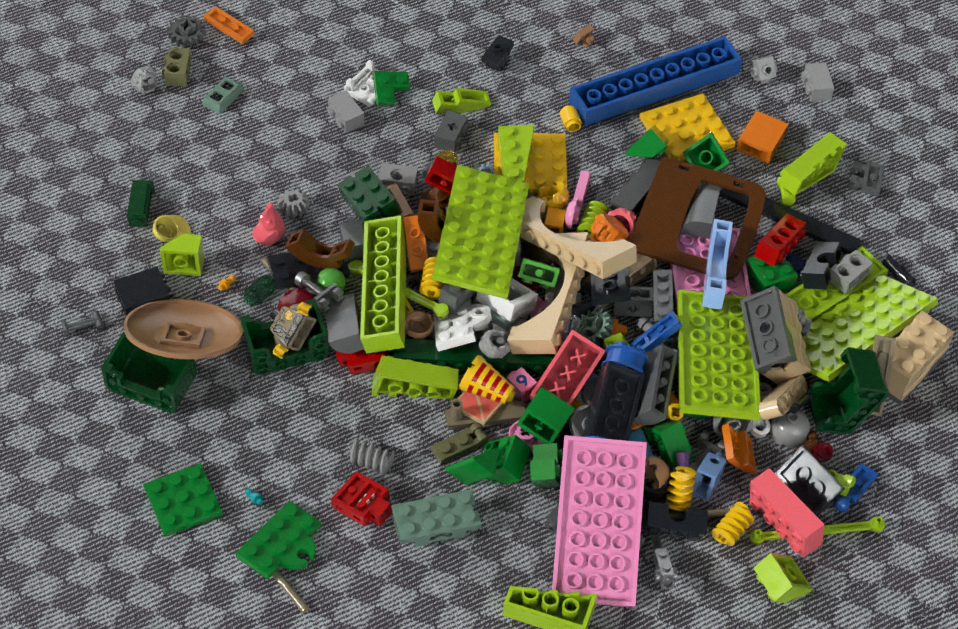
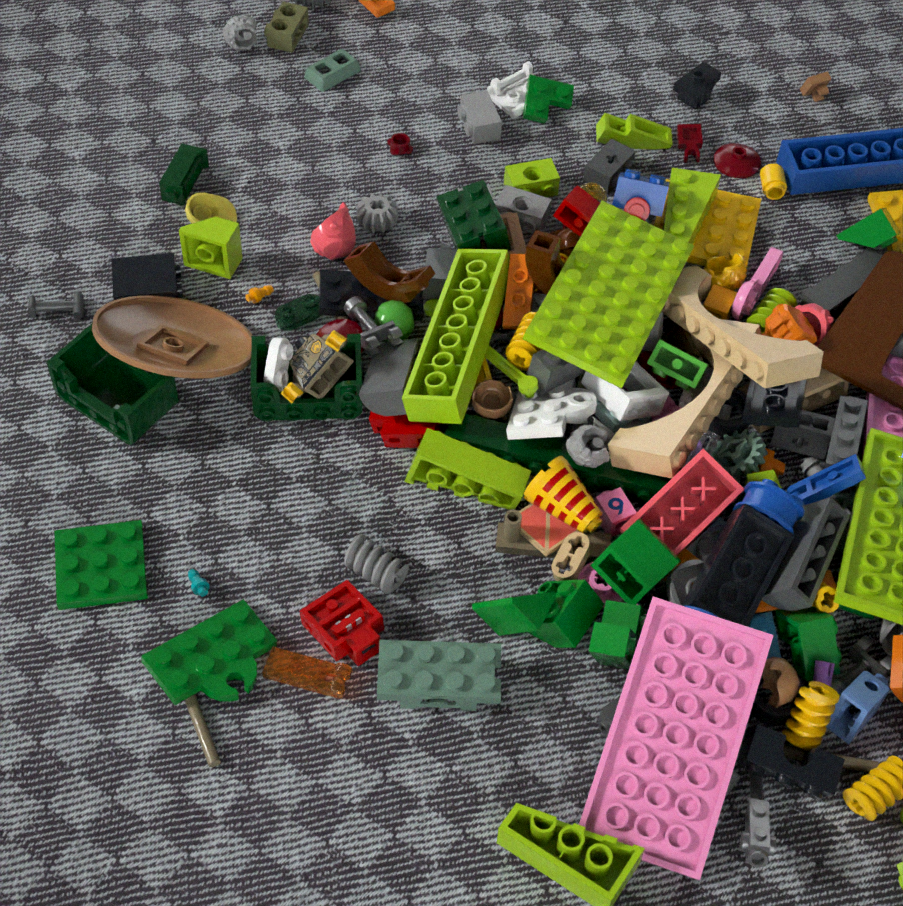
camera: 15 degrees right, 0 degrees up
(263, 327) = (277, 362): none -> white plate
(292, 145) = (400, 144): none -> dark red plate
(347, 538) = (307, 672): none -> clear orange plate
(399, 152) = (534, 177): none -> lime brick
(459, 443) = (505, 574): olive plate -> none
(481, 152) = (641, 194): none -> brick
(497, 422) = (565, 556): none -> tan beam
(503, 97) = (690, 138): none -> dark red plate
(540, 106) = (737, 160): none -> dark red dish

